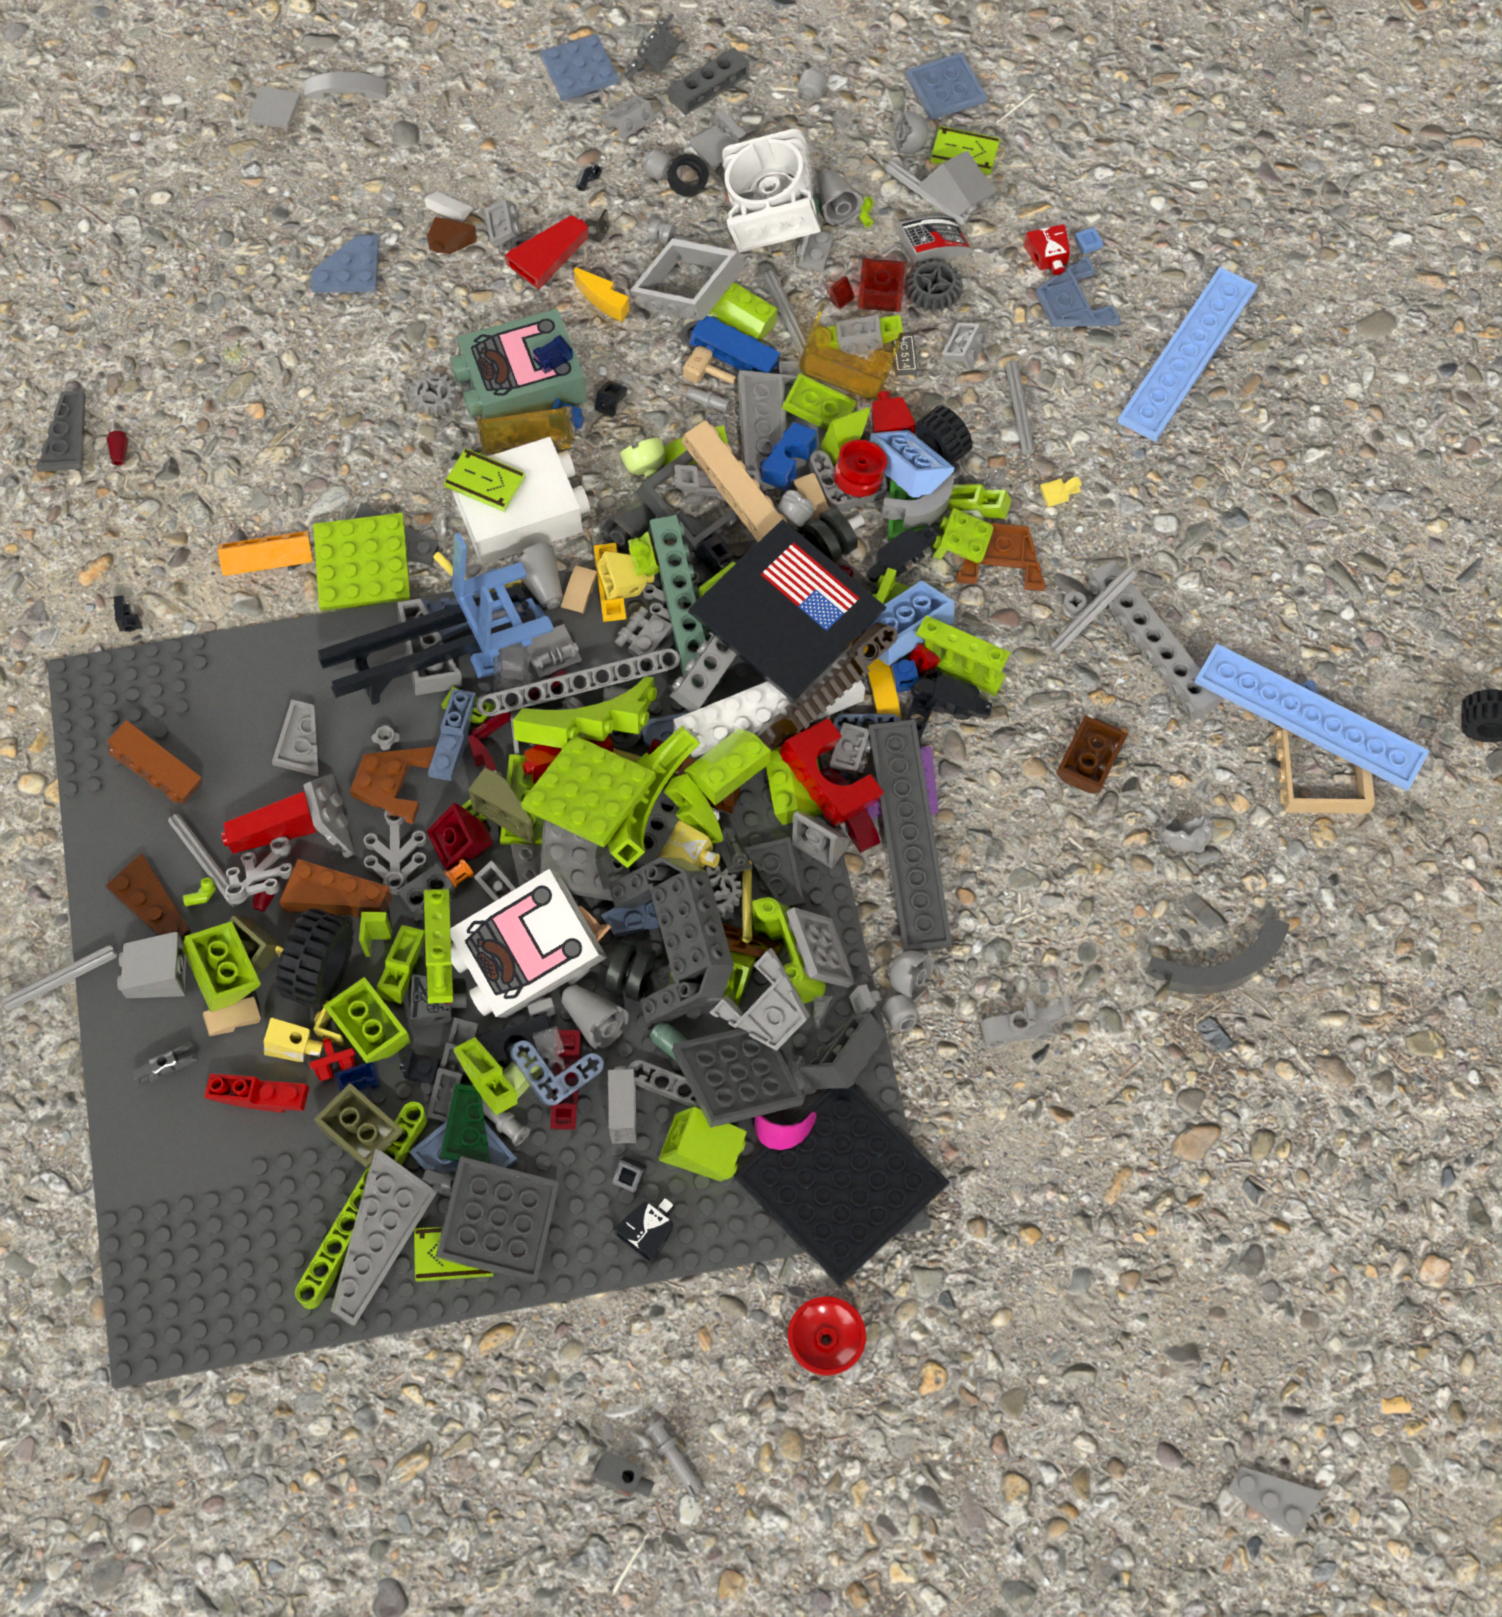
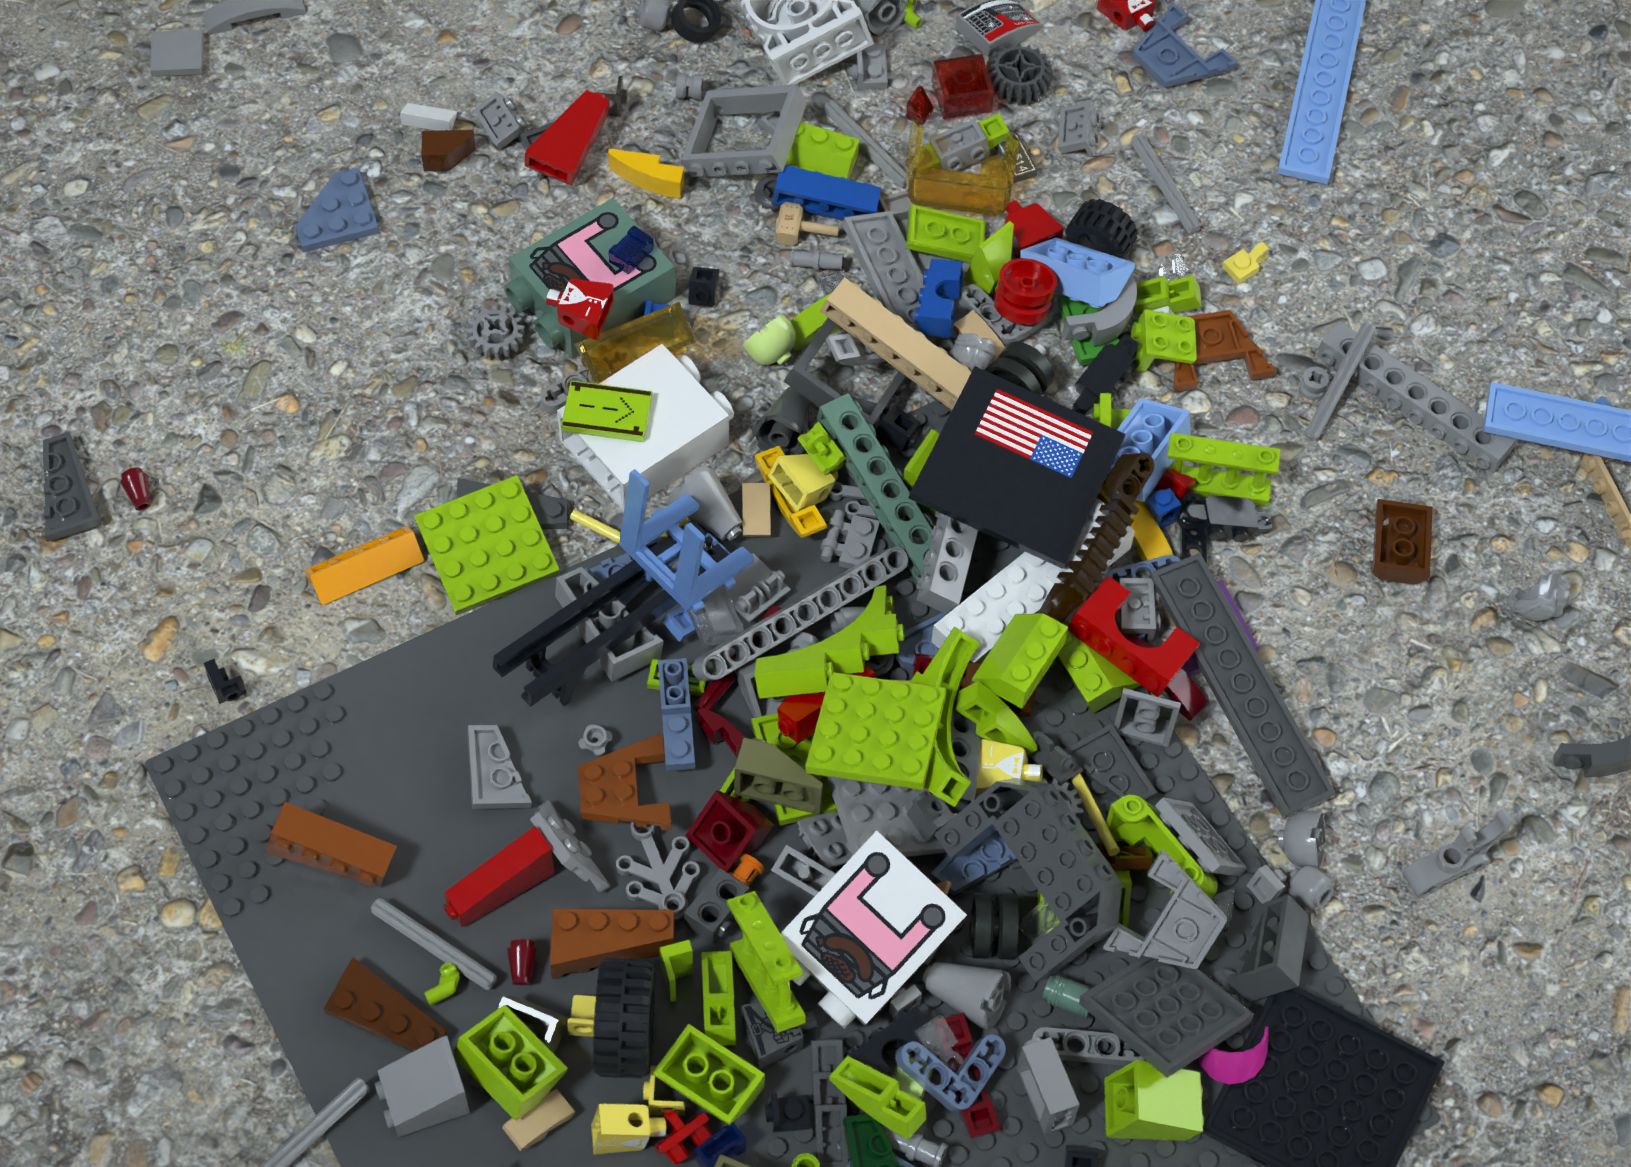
camera: 20 degrees left, 5 degrees down
(238, 892) = (498, 967): light grey plant -> none
(497, 390) = (583, 305): none -> red torso
(587, 175) = (579, 44): black arm -> none

